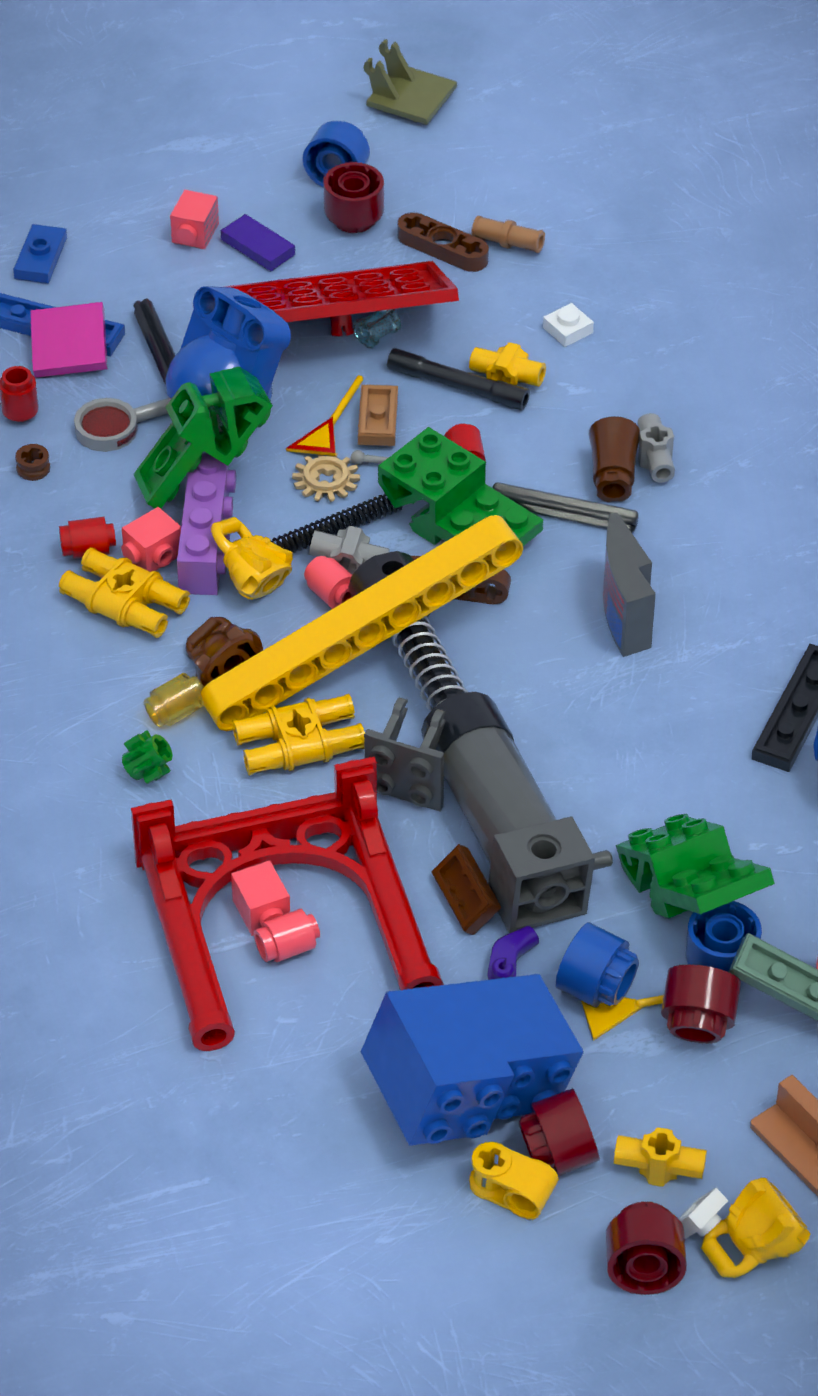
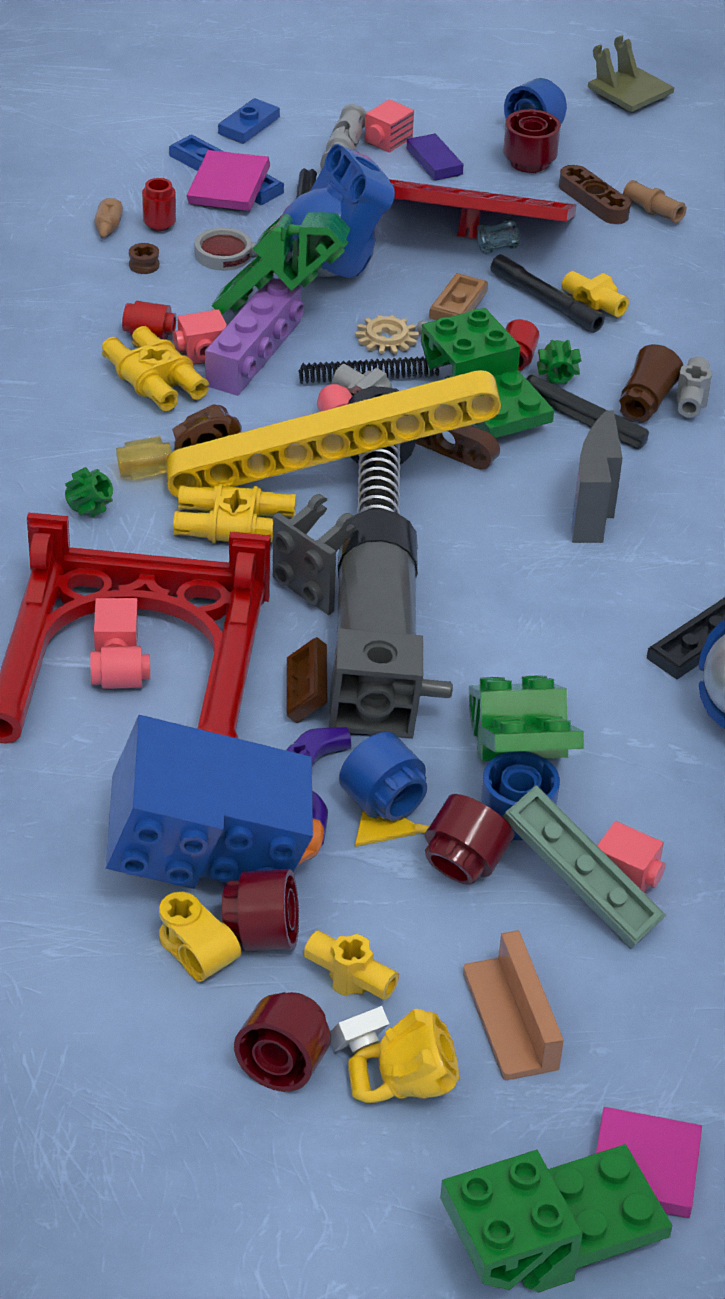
camera: 20 degrees right, 5 degrees down
(157, 249) = (347, 129): none -> light grey piece
(252, 561) = (274, 373): yellow piece -> none
(322, 438) = (400, 306): yellow piece -> none
(515, 460) = (559, 361): none -> green gear
(568, 324) = (670, 279): white plate -> none

